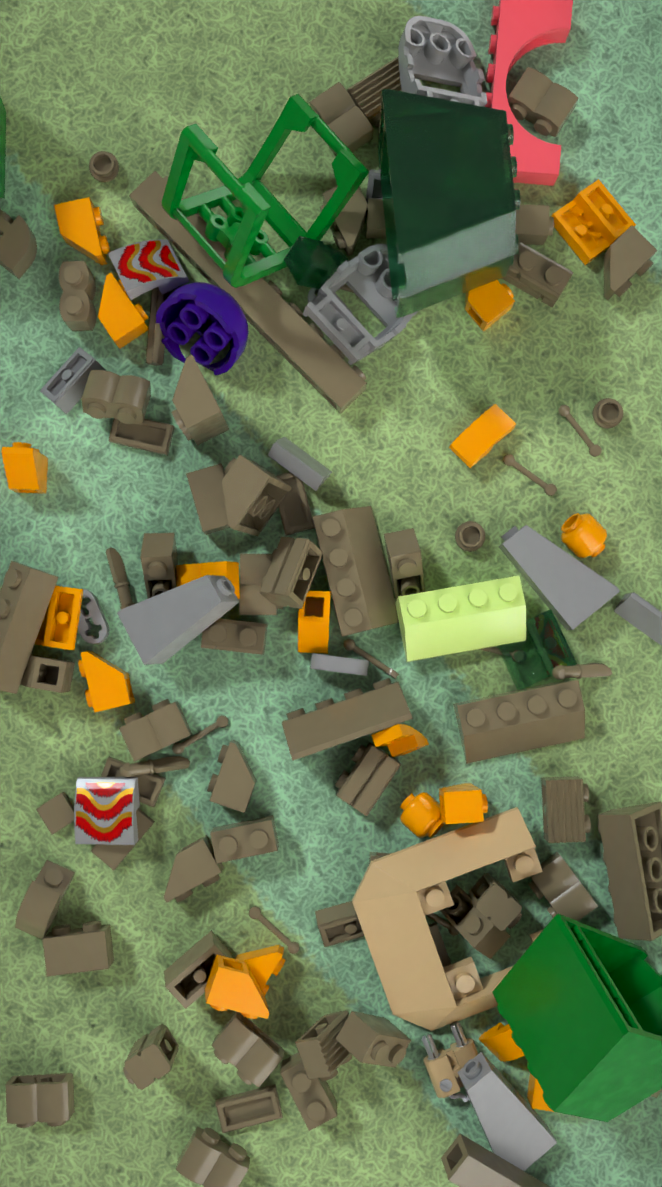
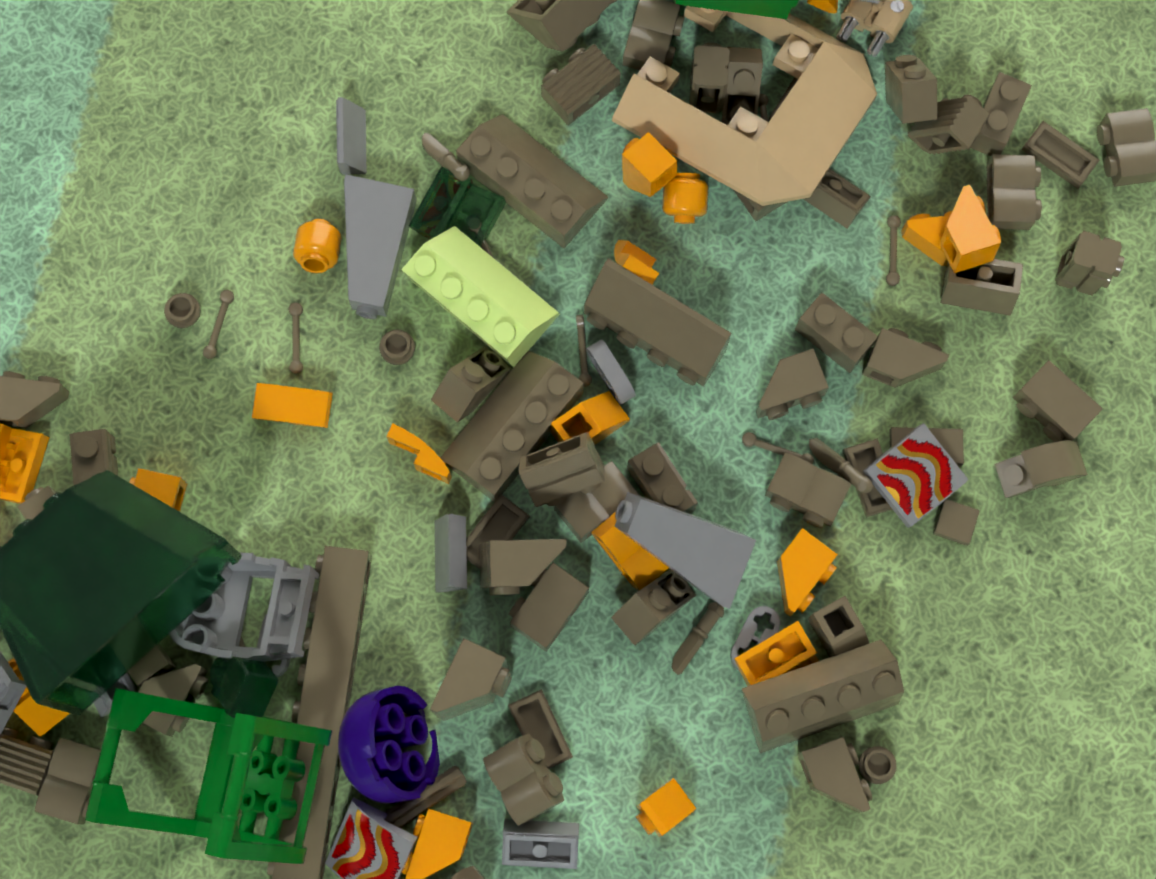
camera: 130 degrees left, 10 degrees down
(367, 778) = (693, 269): dark tan brick -> none
(374, 496) = (426, 460): none -> light orange slope

